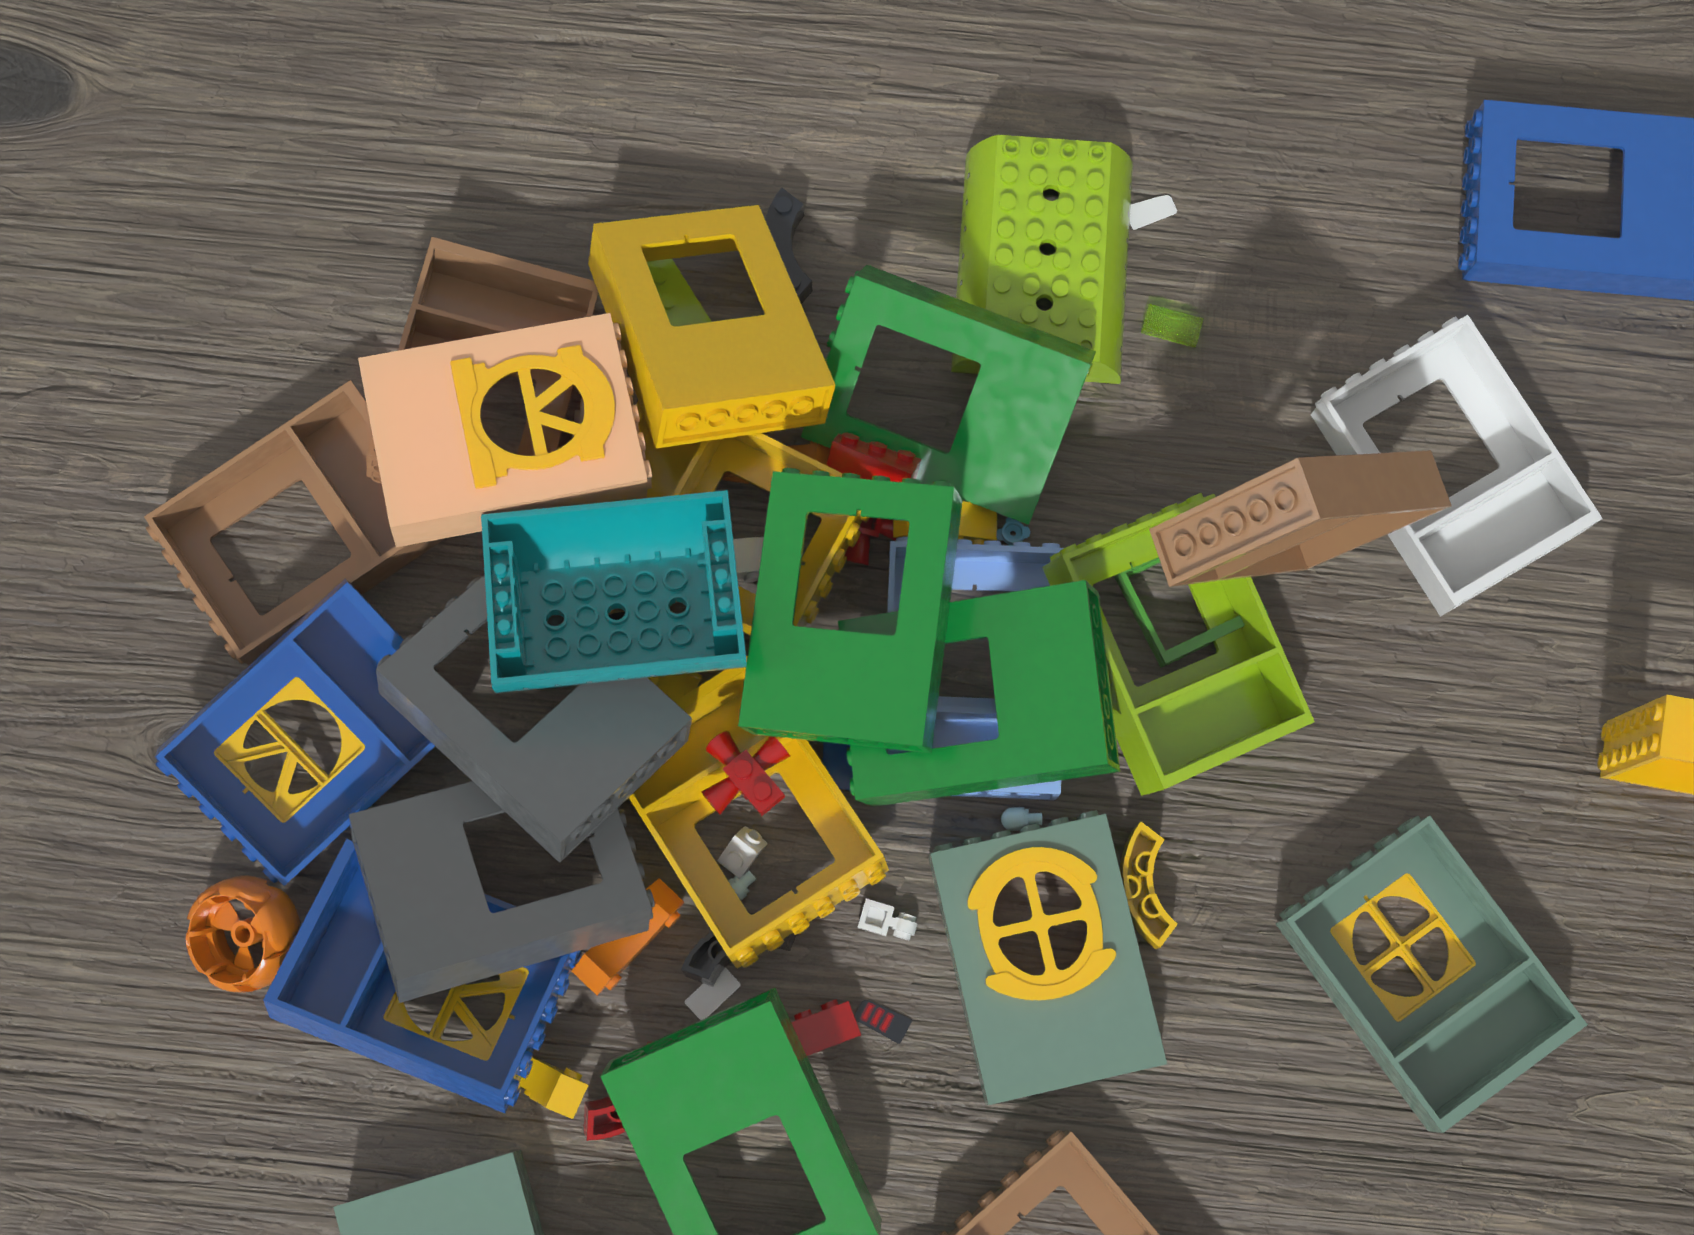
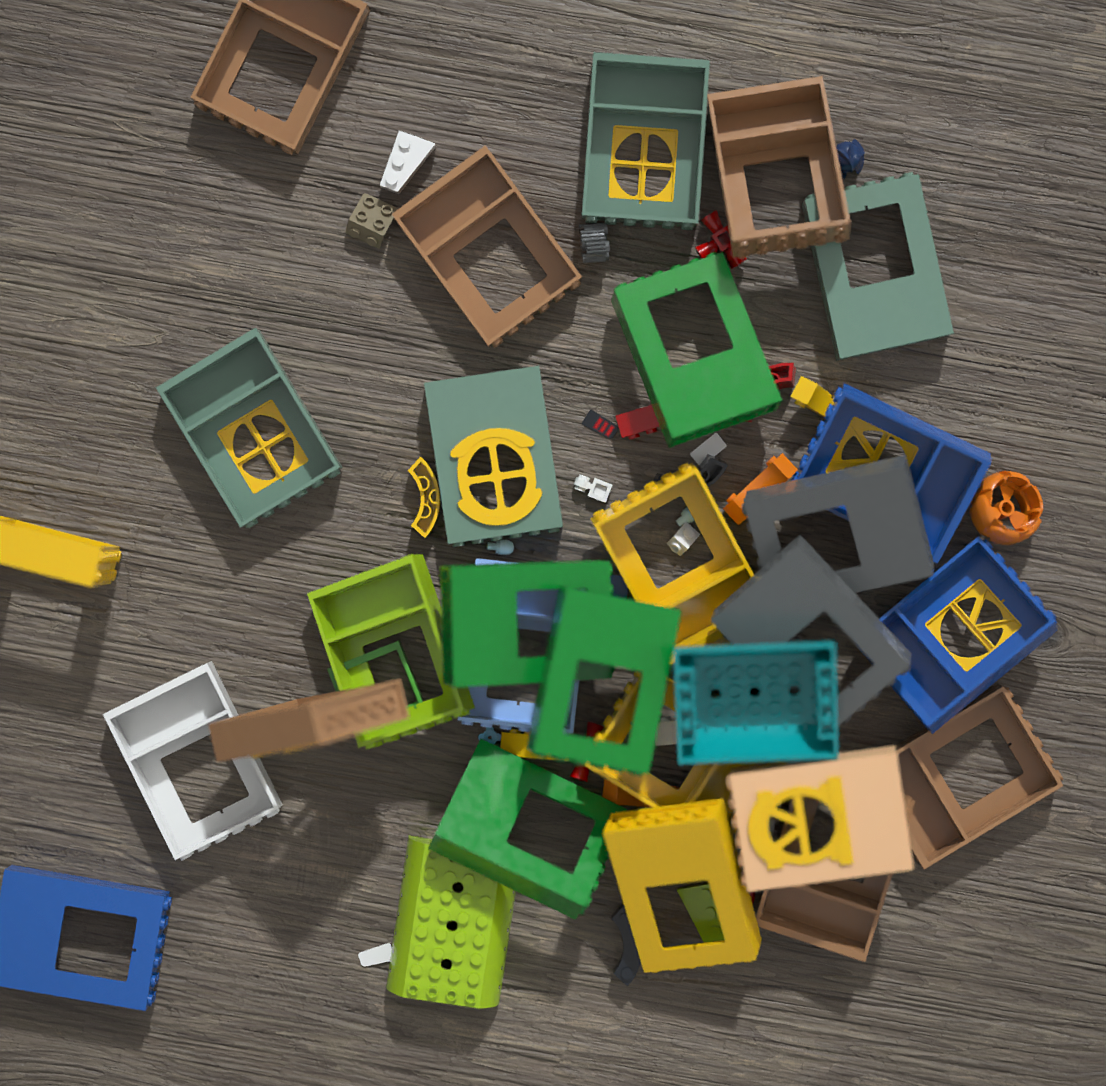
camera: 175 degrees left, 10 degrees up
(745, 773) = (678, 583): red brick -> none
(871, 459) = (580, 783): red wedge -> none
(1172, 325) = (369, 873): clear neon green plate -> none

